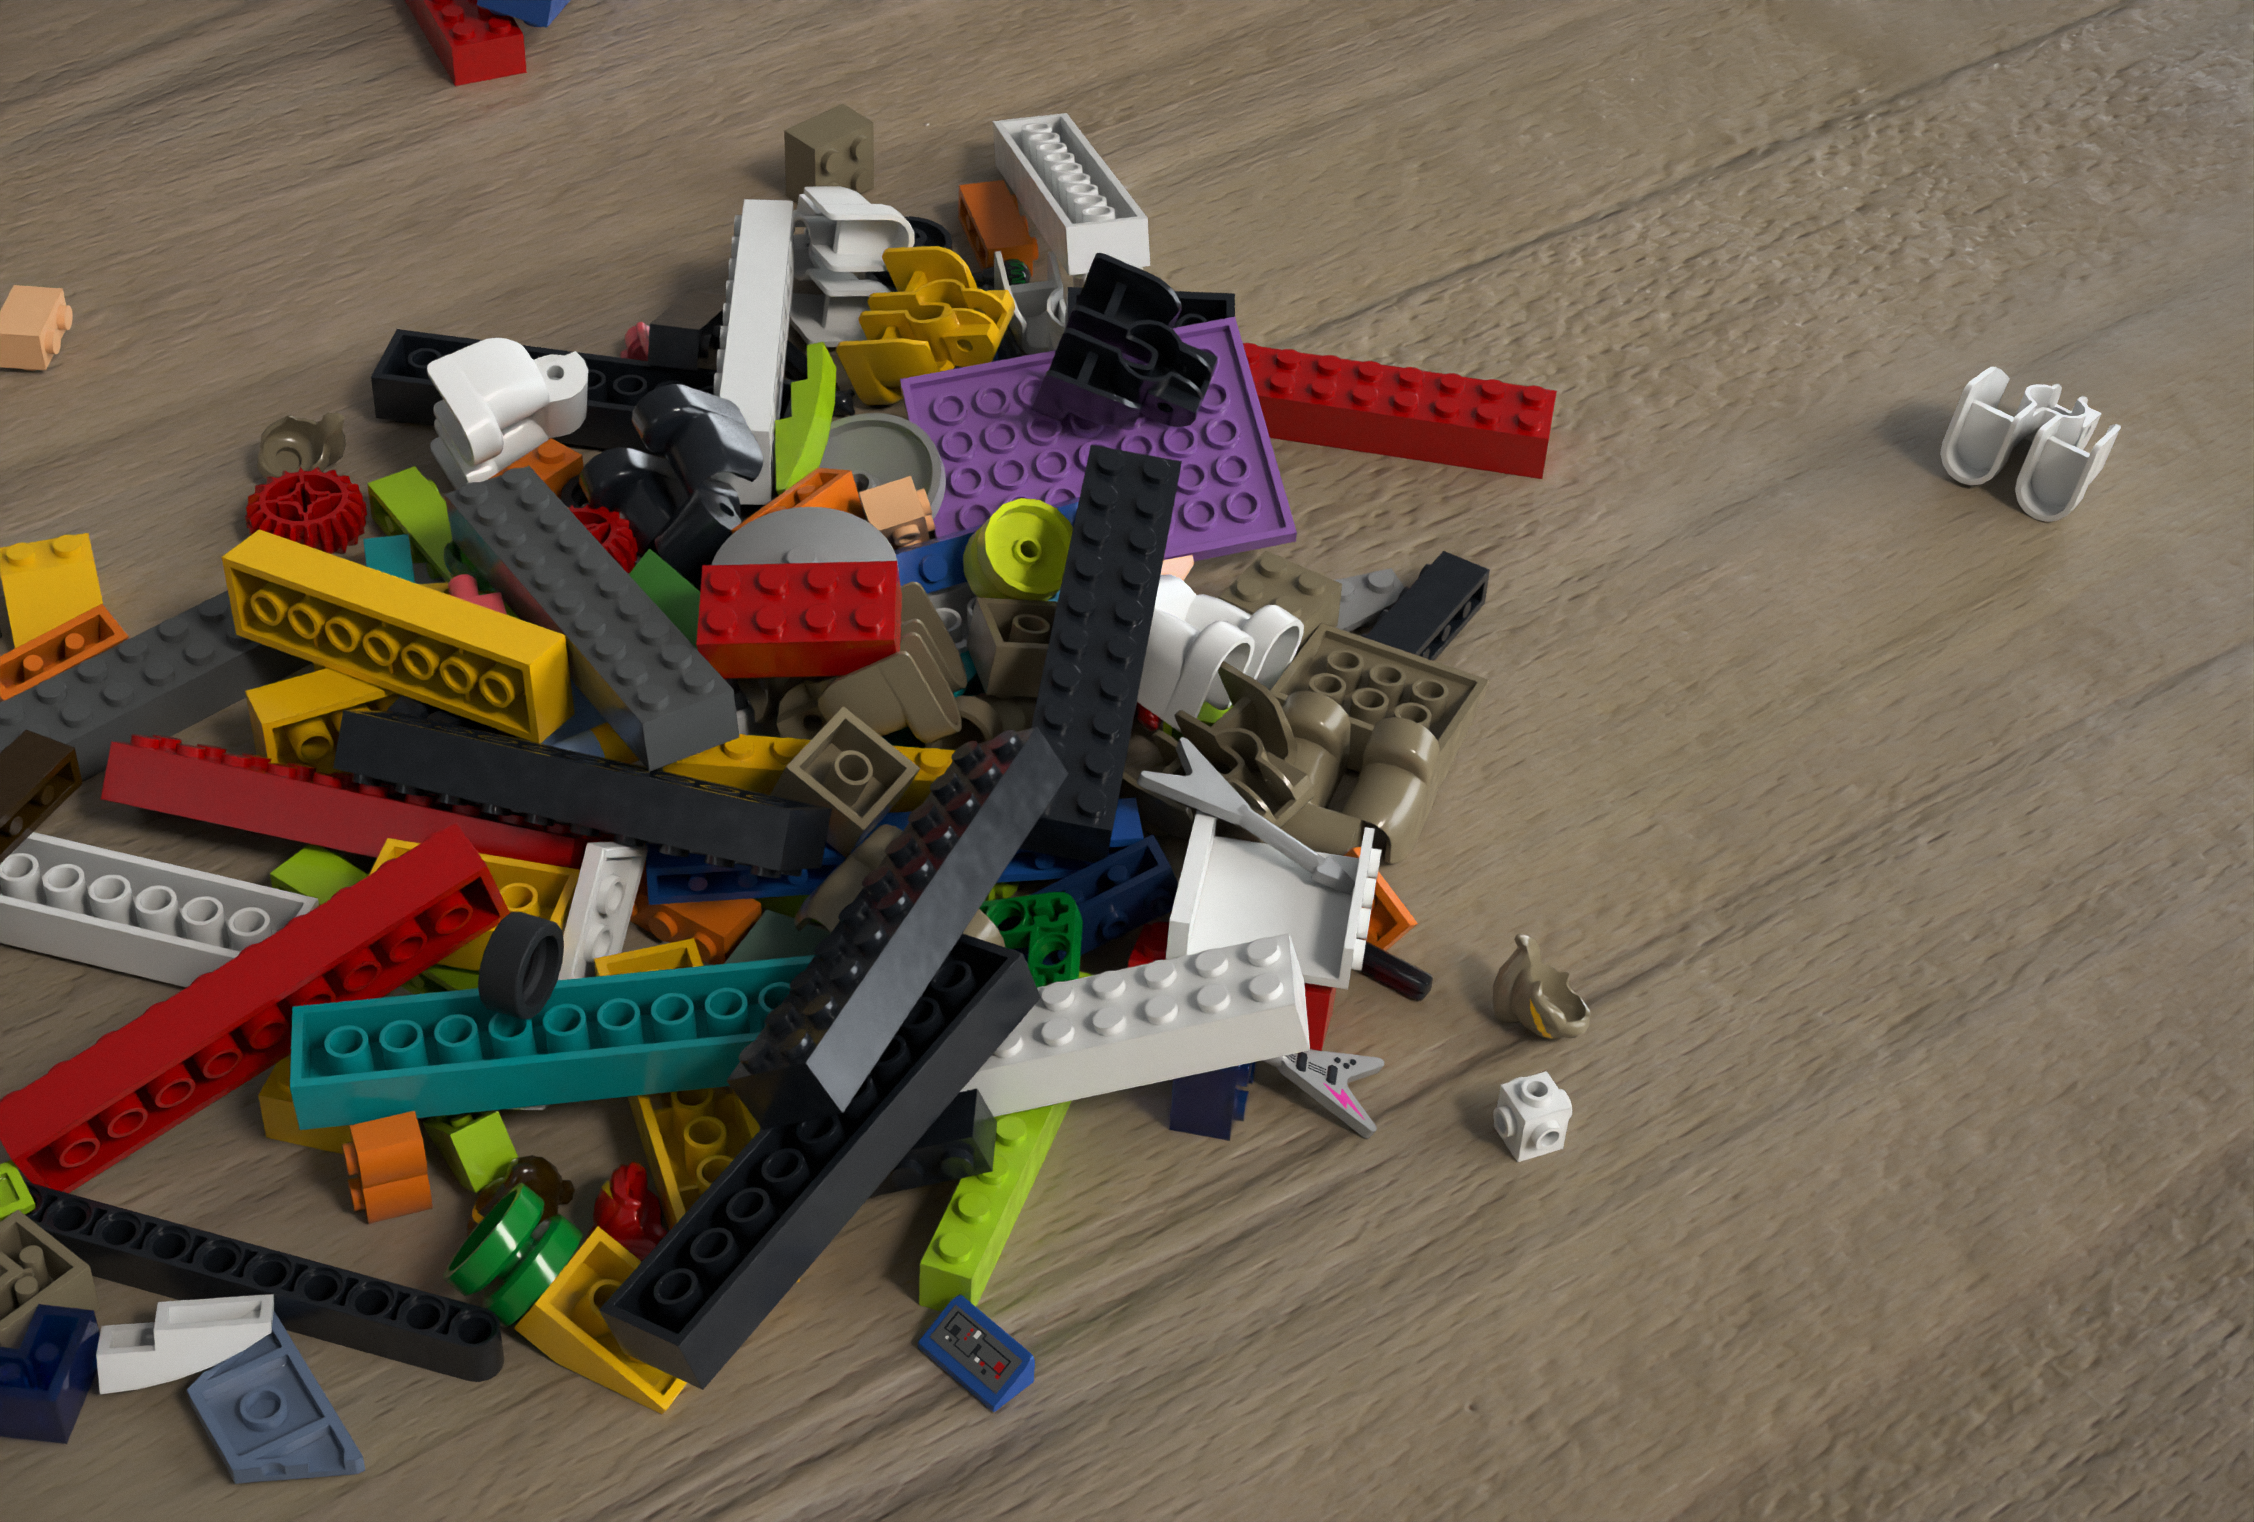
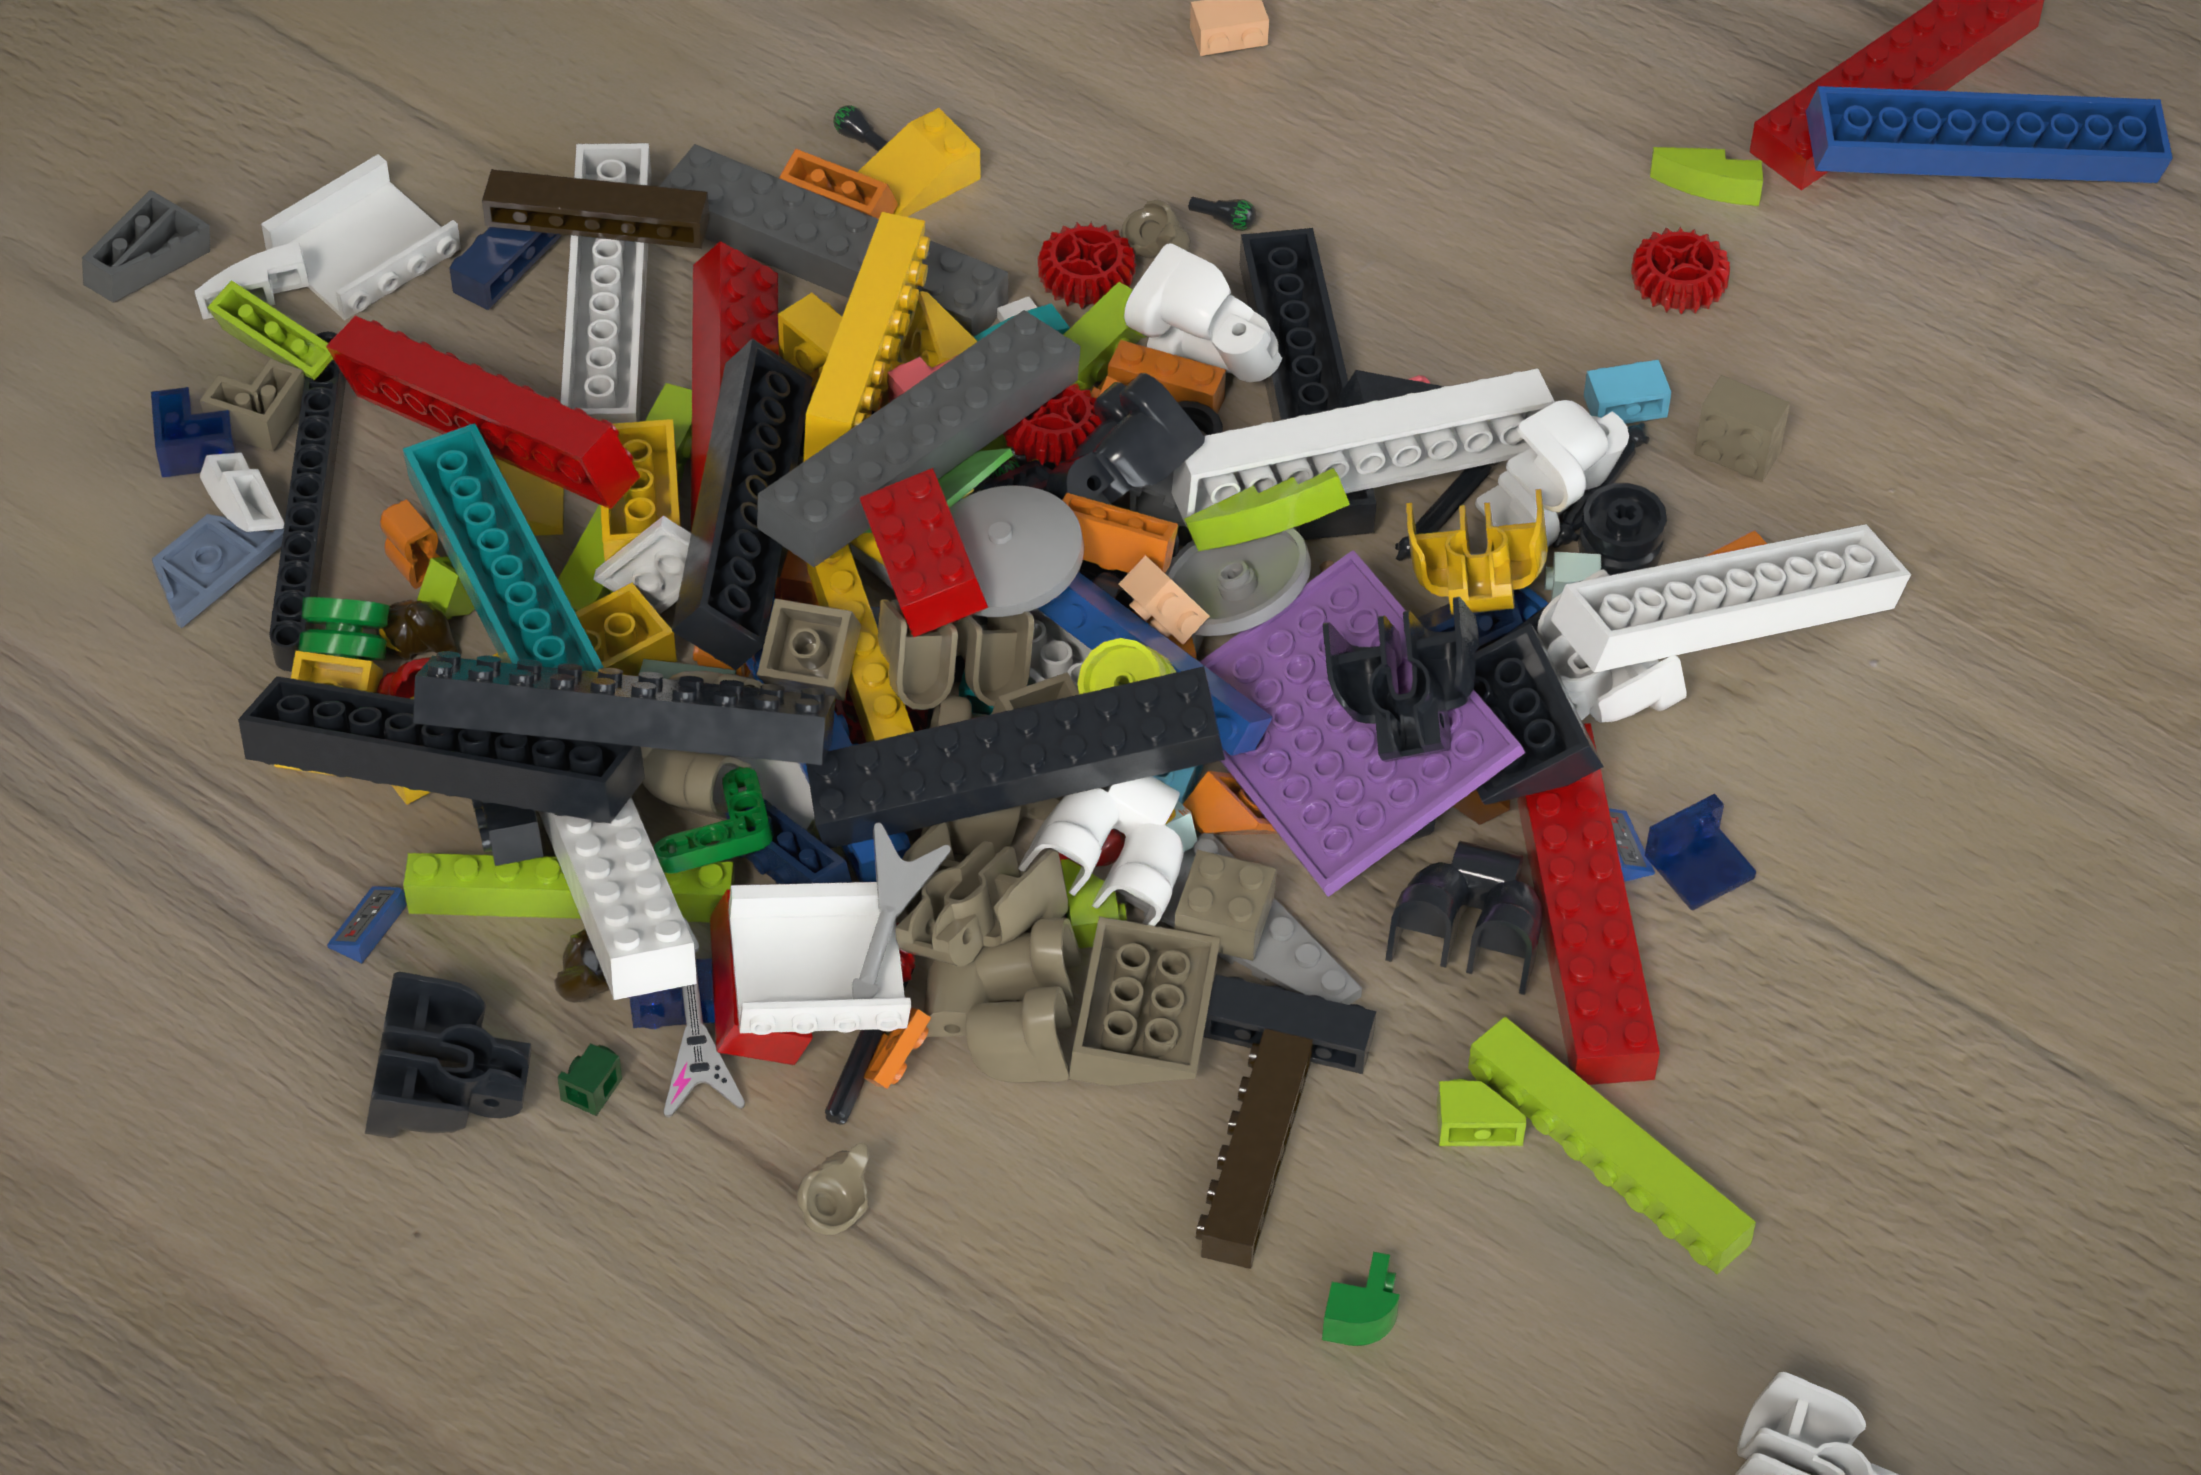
camera: 75 degrees right, 10 degrees up
(304, 399) = (1234, 213): none -> black piece
(481, 104) = (1708, 174): none -> lime slope
(521, 965) = (519, 497): black tyre -> none
(592, 151) = (1680, 270): none -> red gear
(721, 210) = (1631, 391): none -> medium azure brick
(1152, 1147) = (581, 970): none -> dark brown hair
(1296, 1348) = (434, 1022): none -> black piece
(1311, 1177) = (591, 1079): none -> dark green brick
(1315, 329) = (1696, 854): none -> clear blue bracket
(1351, 461) = (1480, 880): none -> black piece
(1532, 1116) = (701, 1207): white brick -> none
(1570, 534) = (1476, 1116): none -> lime slope
(1571, 681) = (1256, 1148): none -> dark brown brick
(1627, 463) = (1611, 1146): none -> lime brick
(1779, 654) = (1362, 1314): none -> green brick

